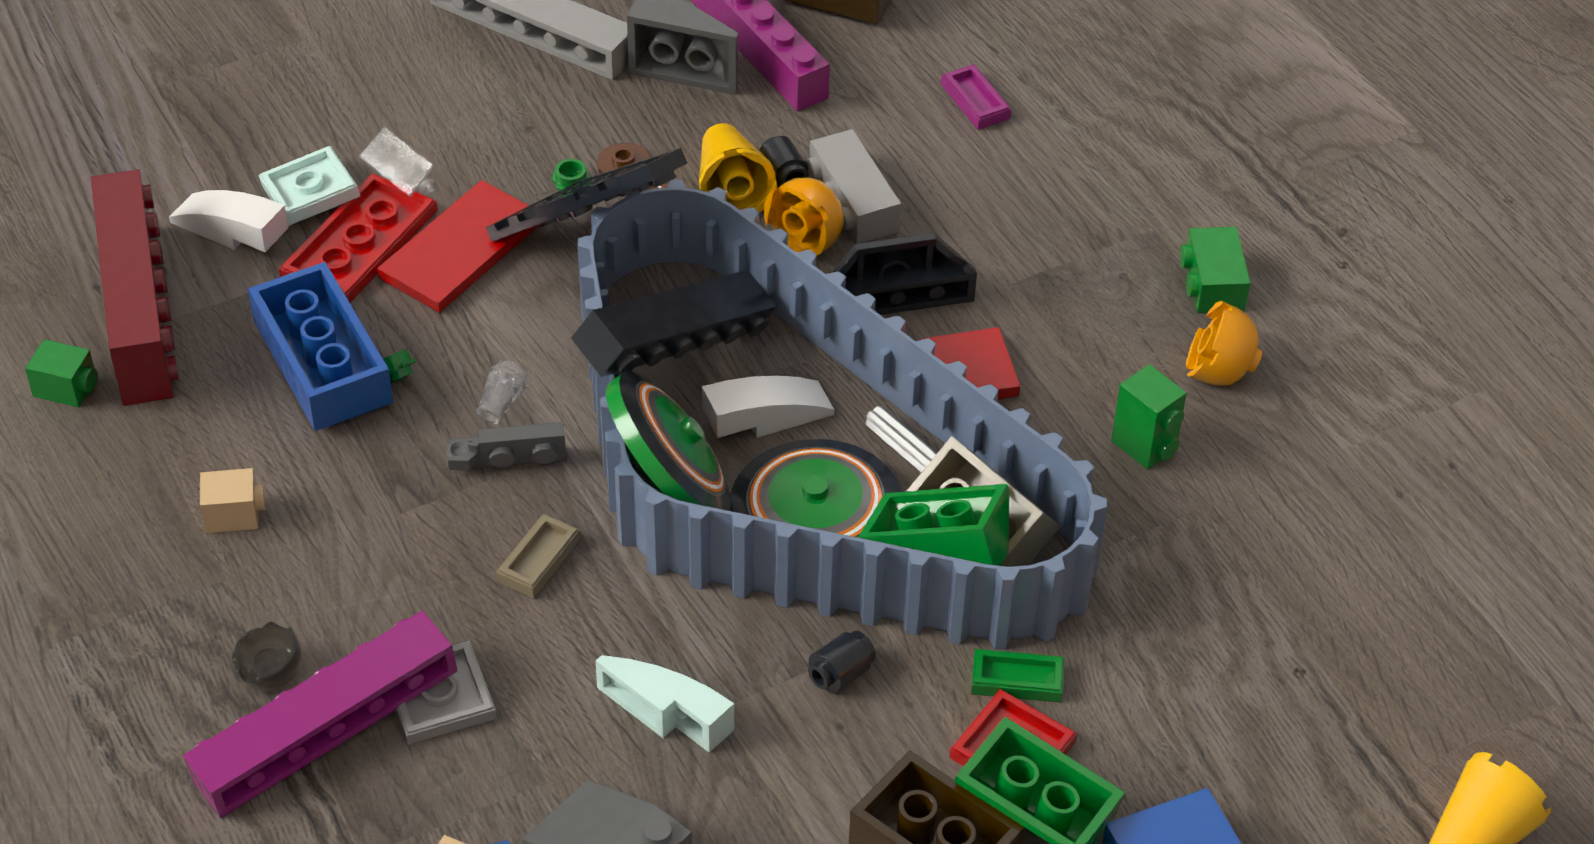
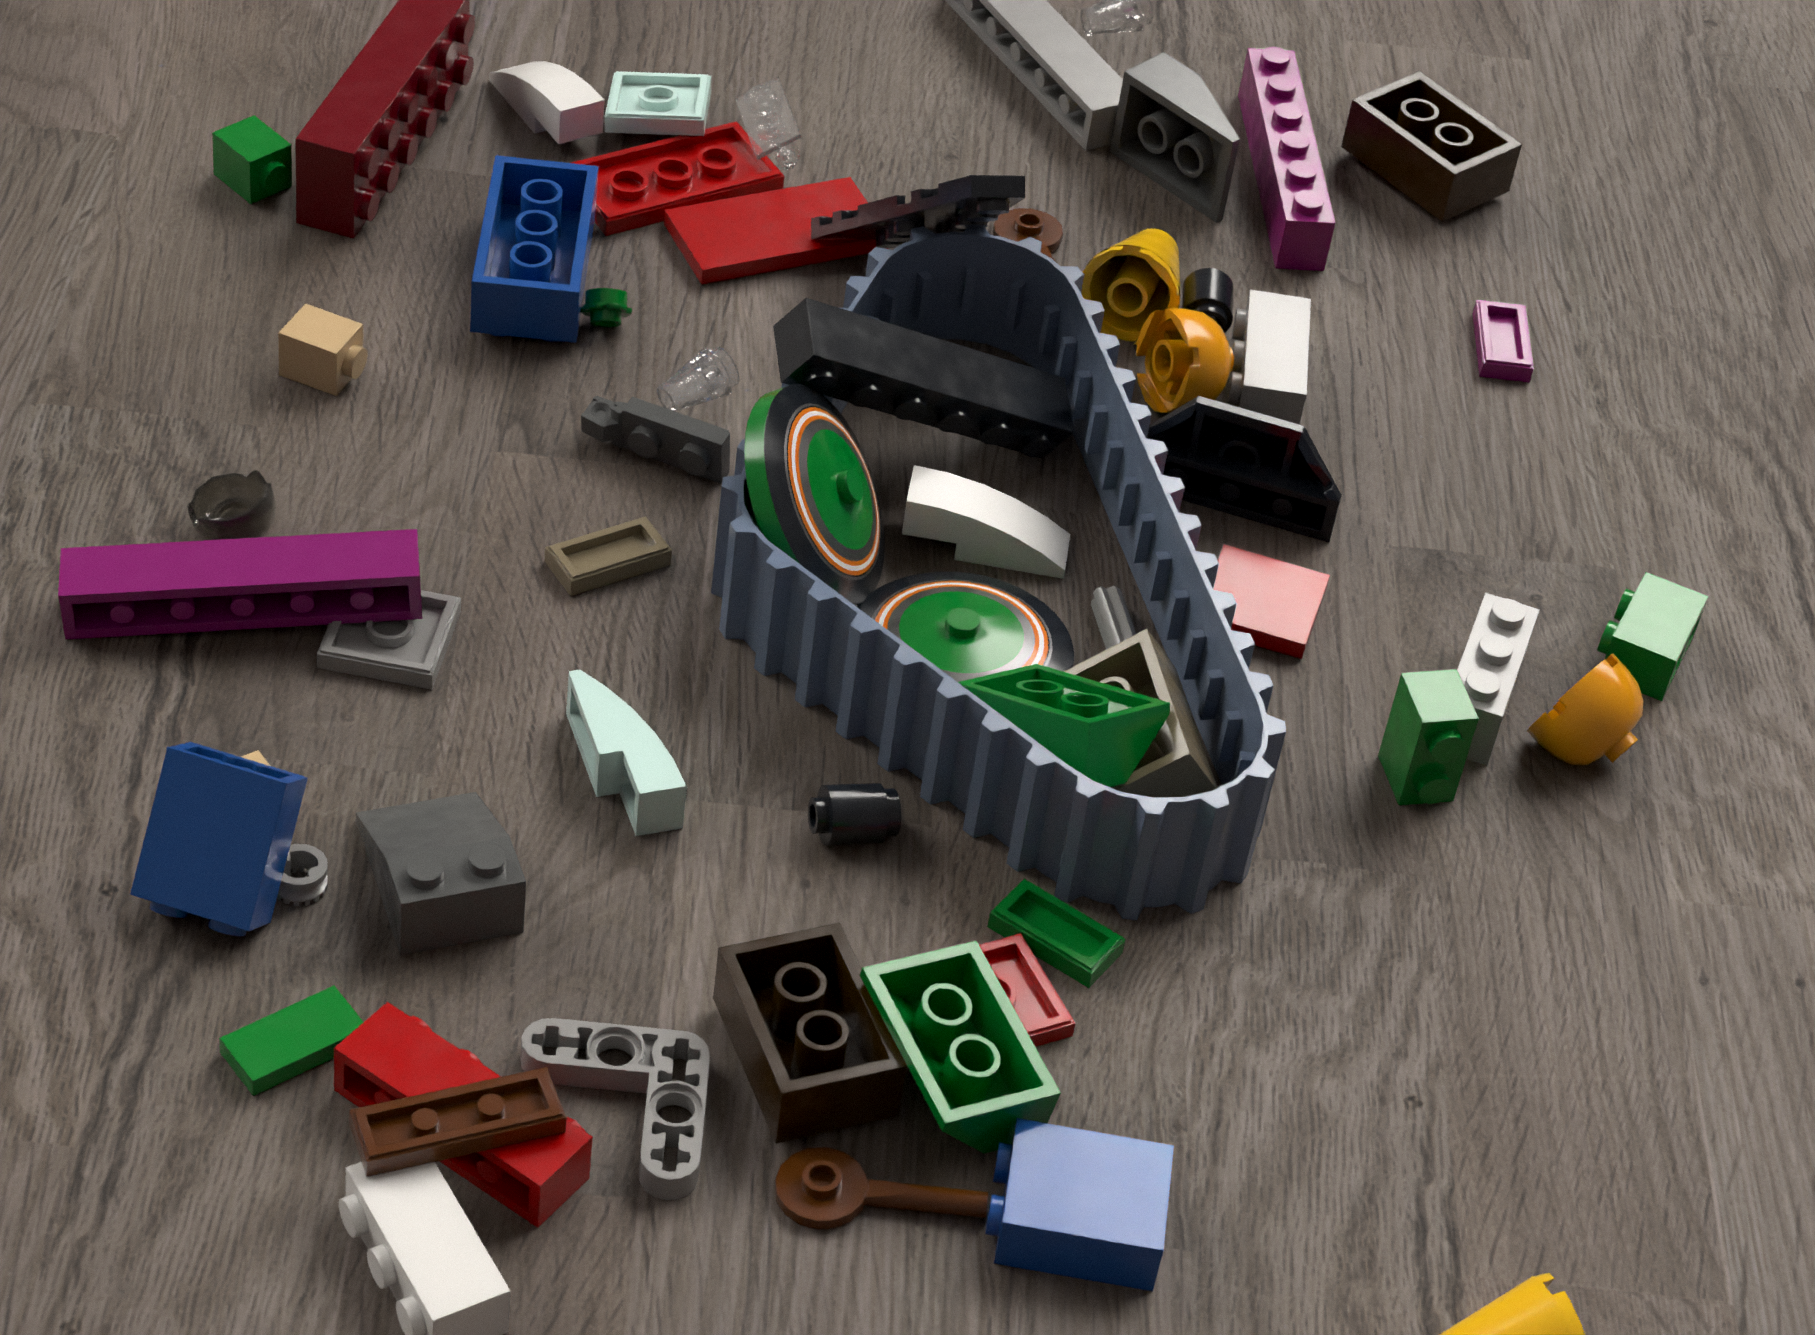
camera: 25 degrees right, 5 degrees down
(1141, 336) = (1493, 666): none -> brick

